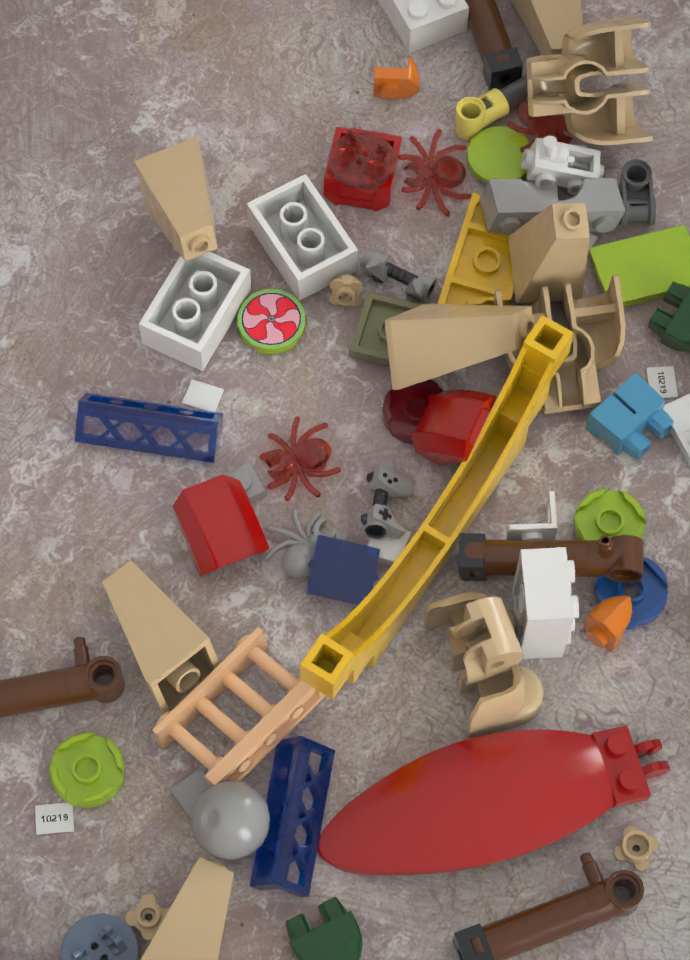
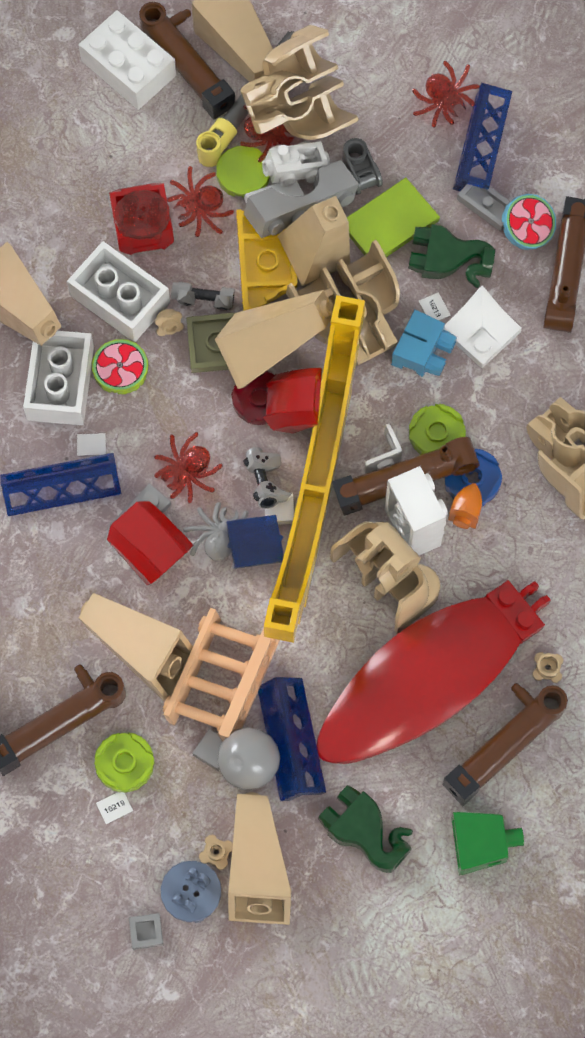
camera: 20 degrees left, 5 degrees up
(397, 82) = (141, 138): orange plate -> none

